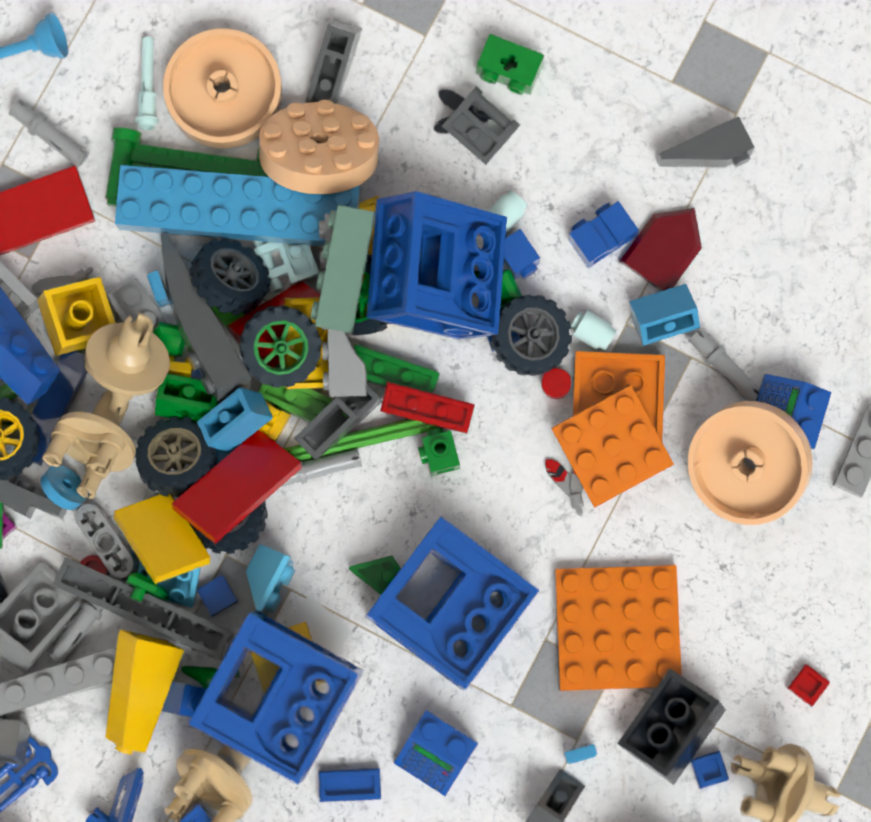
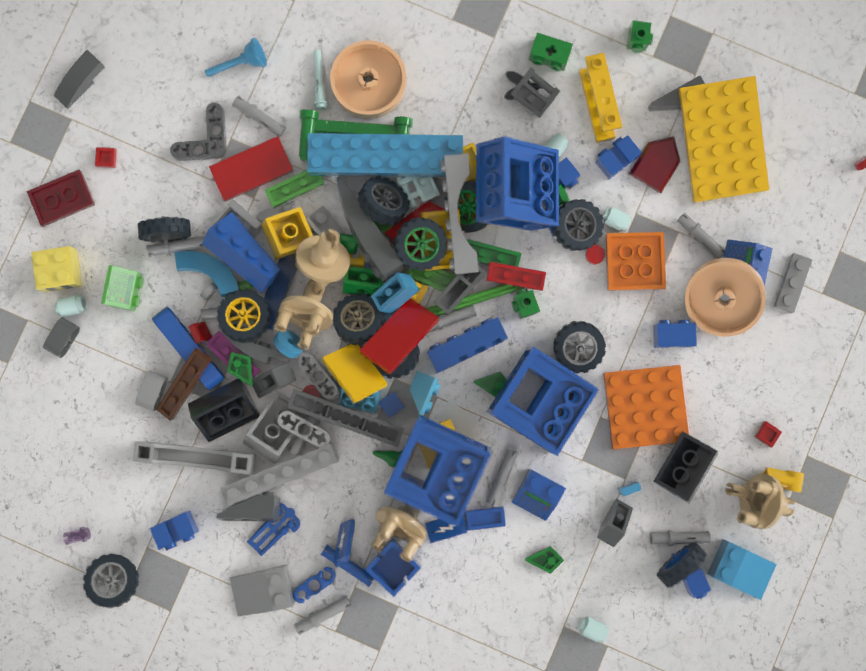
camera: 10 degrees left, 5 degrees up
(35, 543) = (273, 380): none -> dark grey slope
(74, 609) = (313, 441): none -> light grey beam
(91, 247) = (293, 188): none -> bright green plate
(139, 688) = (348, 468): yellow slope -> none
(145, 585) = (346, 403): green piece -> none
(158, 288) = (337, 211): dark azure tile -> none
(183, 699) = (375, 473): blue brick -> none
(286, 795) = (441, 530): none -> blue slope
(334, 61) = (437, 61): dark grey slope -> none
(339, 160) = (434, 113): light nougat piece -> none
(341, 510) = (467, 345): none -> blue wedge
(344, 268) = (461, 190): sand green brick -> none
(381, 722) = (502, 477): none -> light grey pin
(419, 348) = (506, 238): none -> white sticker
(513, 495) = (589, 362): none -> black wheel
(568, 484) = (609, 318): light grey piece -> none
(578, 141) = (600, 98): none -> yellow fence
(612, 446) = (635, 292): orange plate -> none
(651, 50) = (639, 36): none -> green brick
(664, 314) = (662, 205): dark azure brick -> none
(670, 517) = (674, 334): none -> blue brick
(709, 769) = (710, 492): blue tile -> none
(769, 218) = (724, 139): none -> yellow plate
(833, 758) = (789, 479): none -> yellow piece

